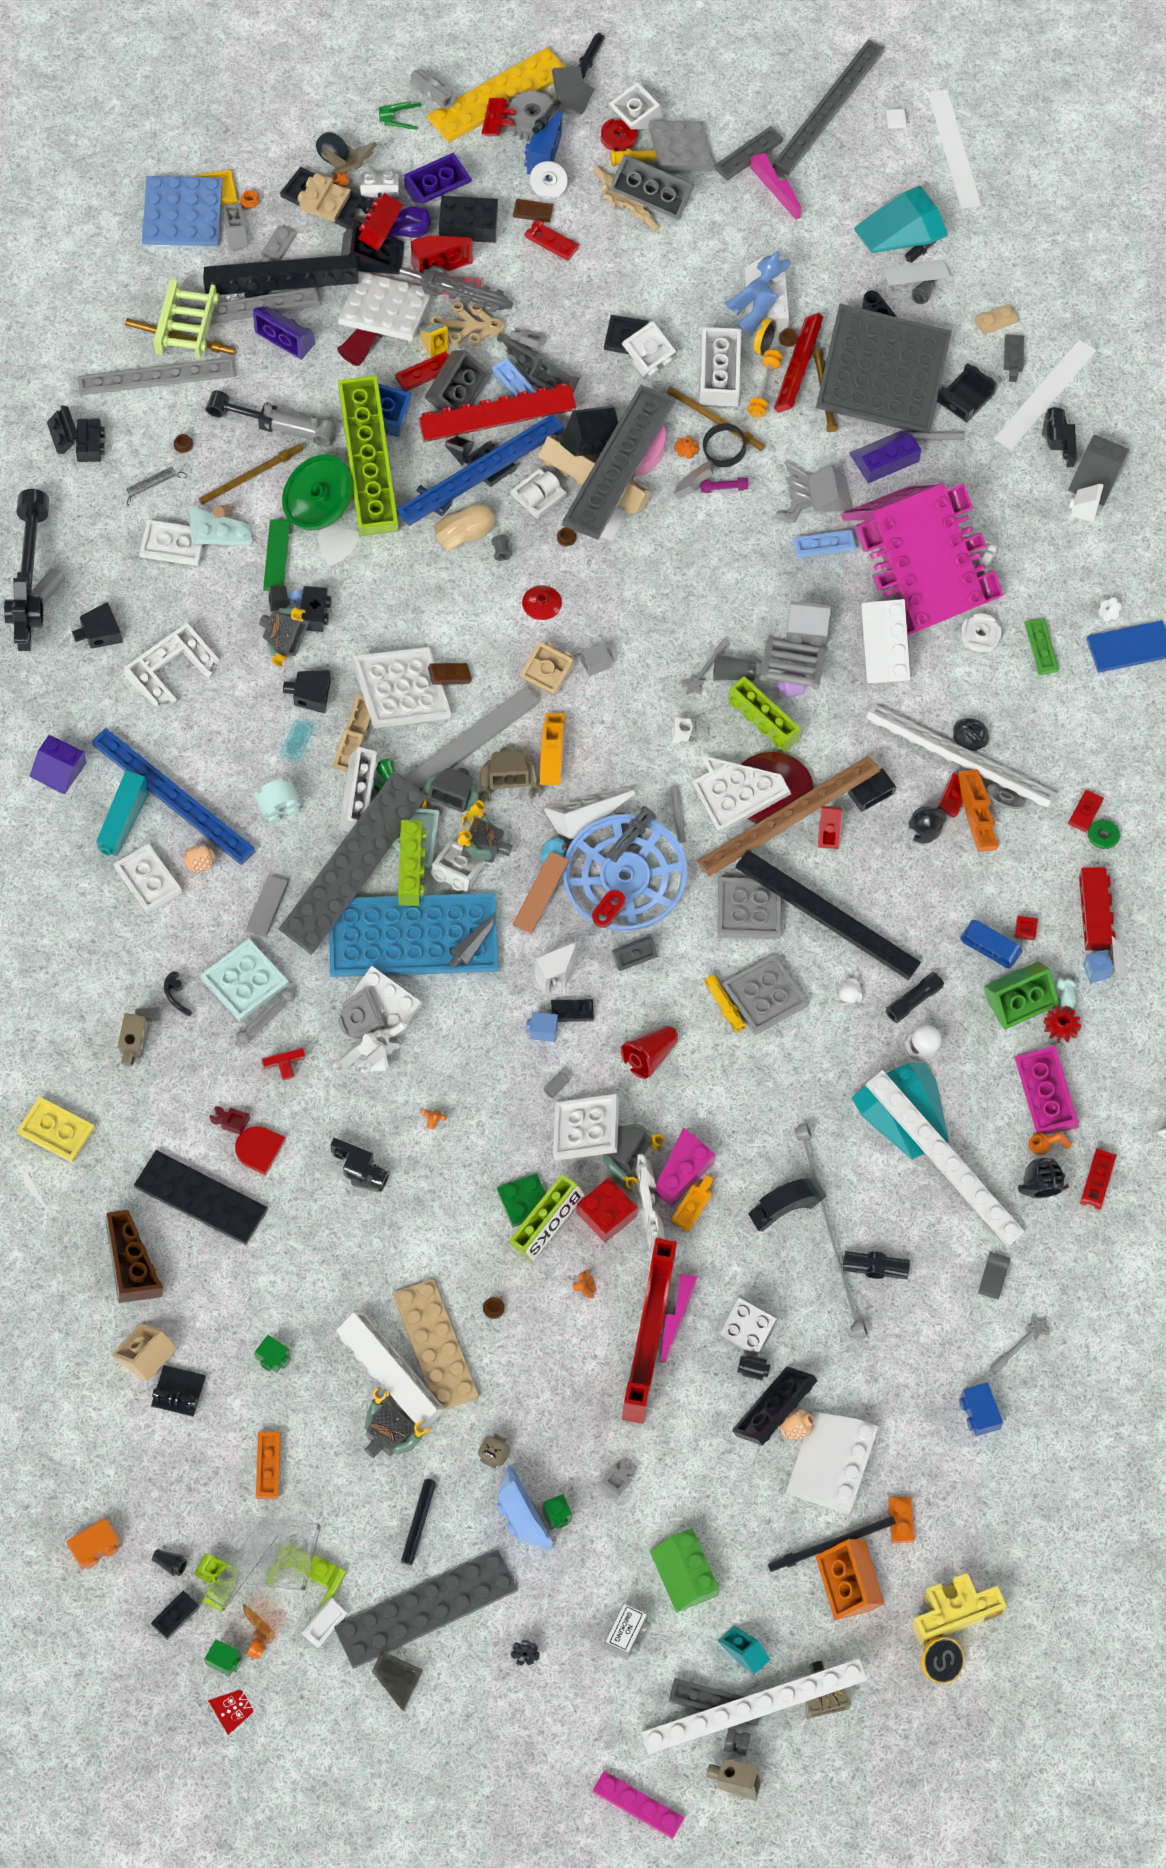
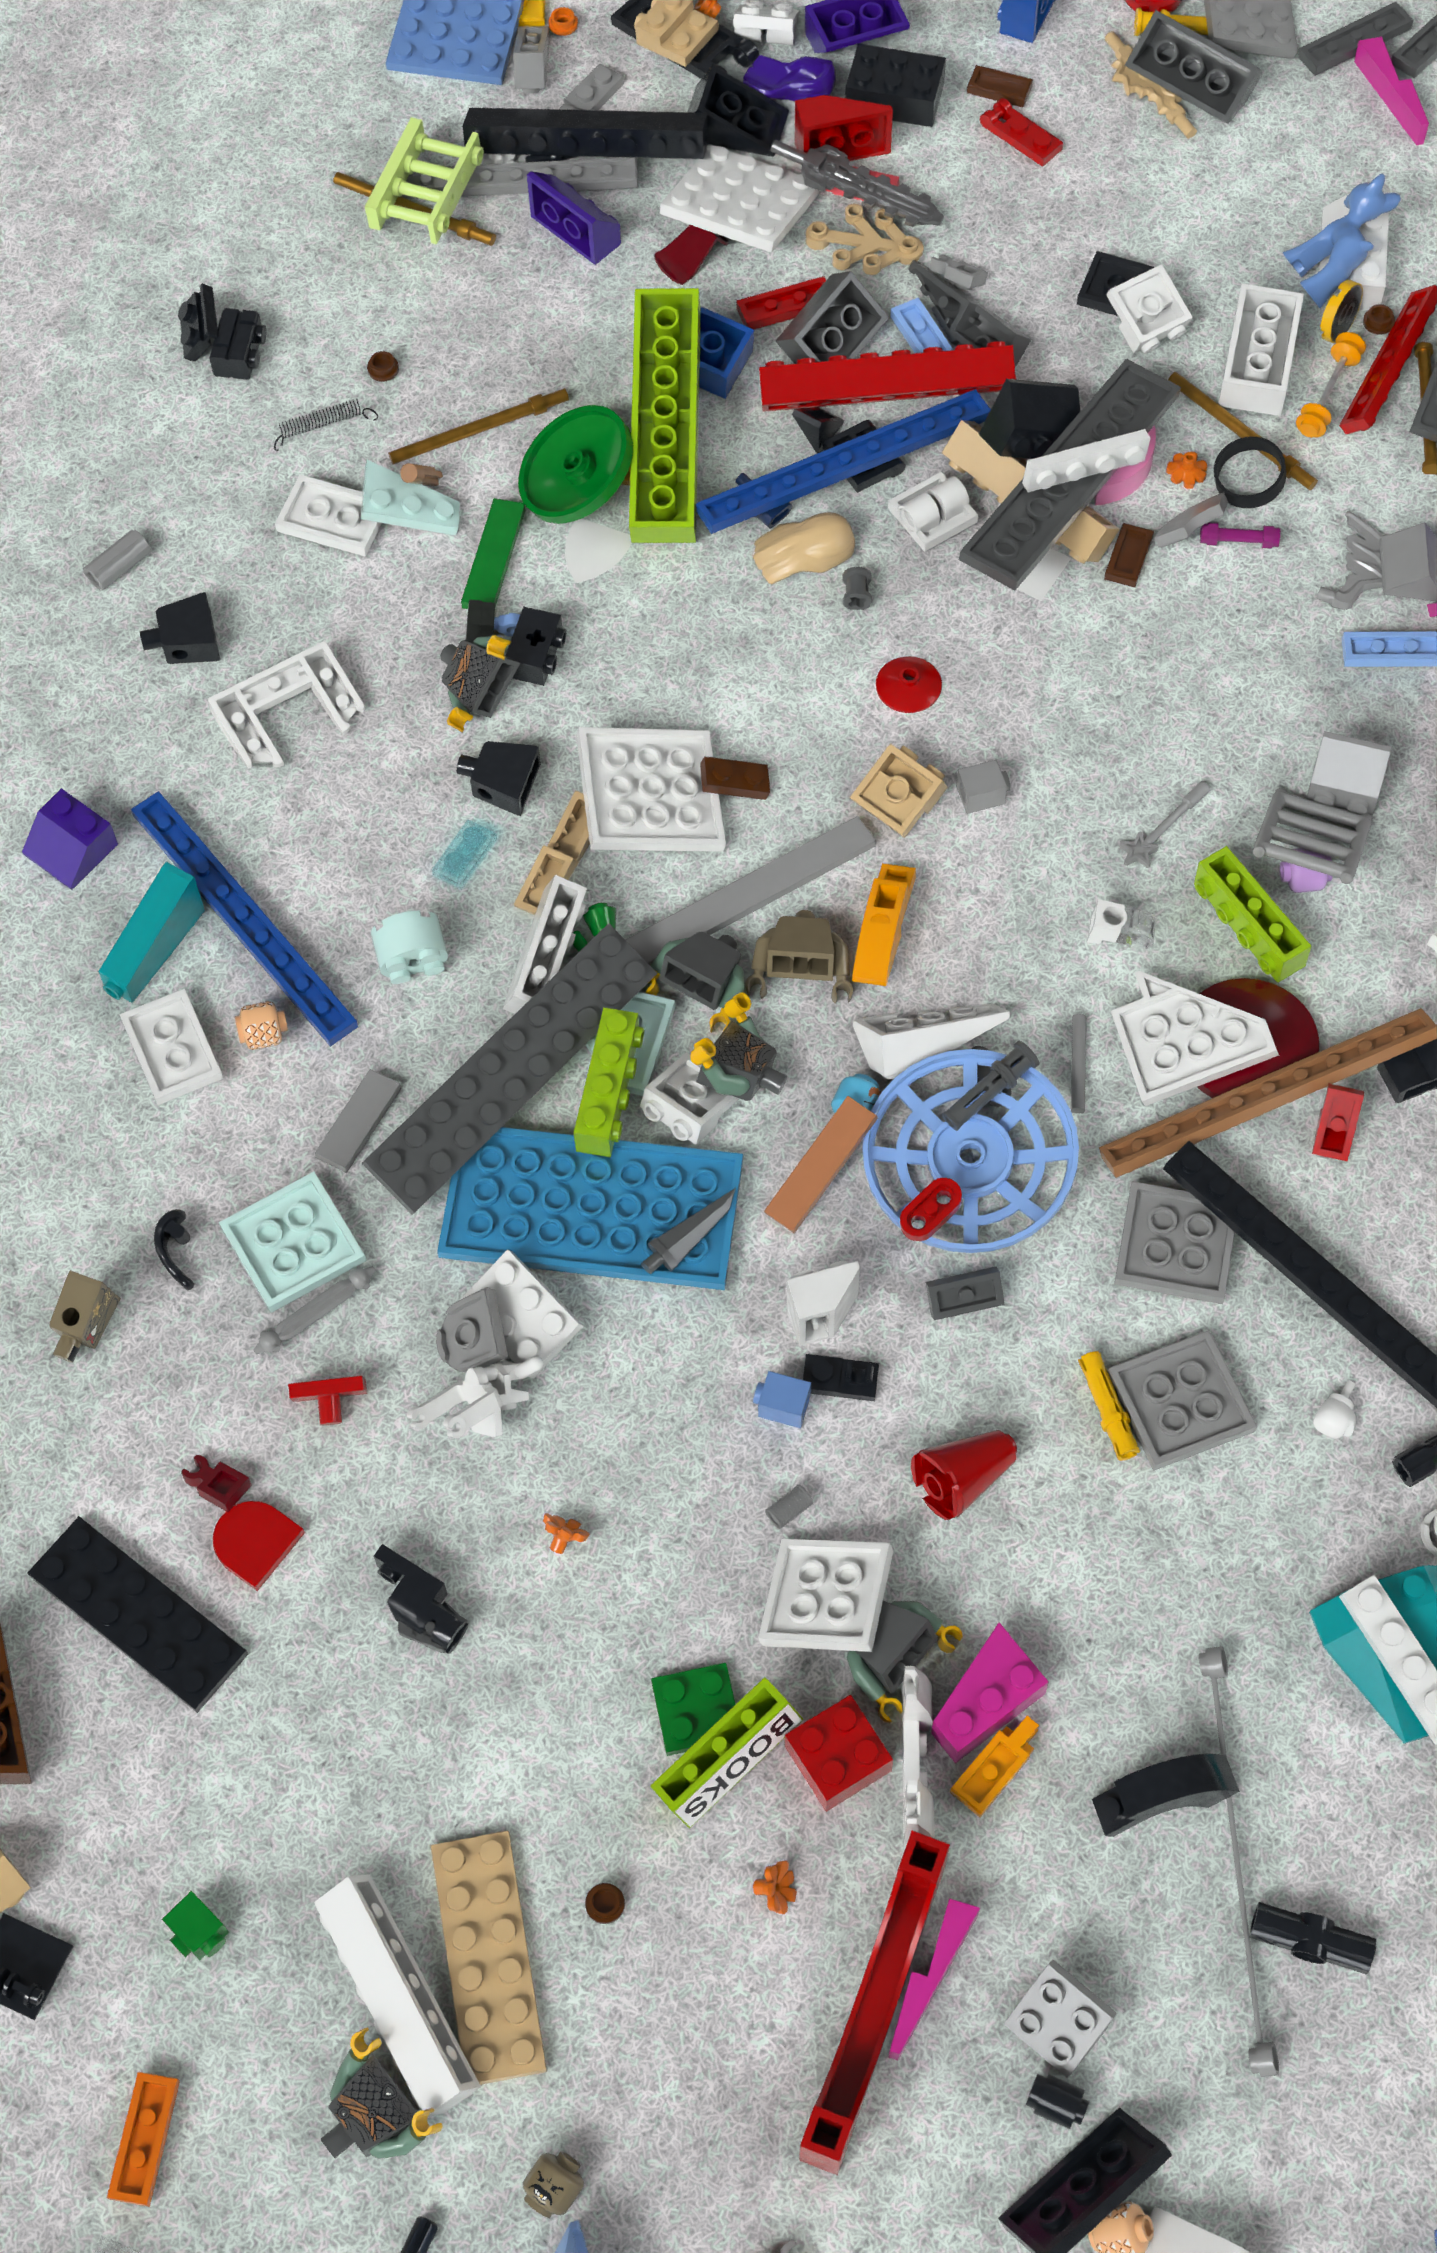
camera: 15 degrees right, 0 degrees up
(26, 608) = (65, 583): black piece -> none
(150, 1013) = (128, 1276): light grey piece -> none
(156, 376) = (363, 263): light grey tile -> none
(270, 418) = (527, 345): light grey piece -> none
(379, 220) = (754, 68): red brick -> none
(435, 339) = (809, 255): yellow slope -> none
(546, 187) = (1019, 49): white dish -> none
(566, 537) = (966, 585): reddish brown plate -> none
(627, 454) = (1086, 460): none -> white plate
(660, 505) = (1129, 555): none -> reddish brown tile
(733, 668) = (1210, 831): dark grey plant -> none

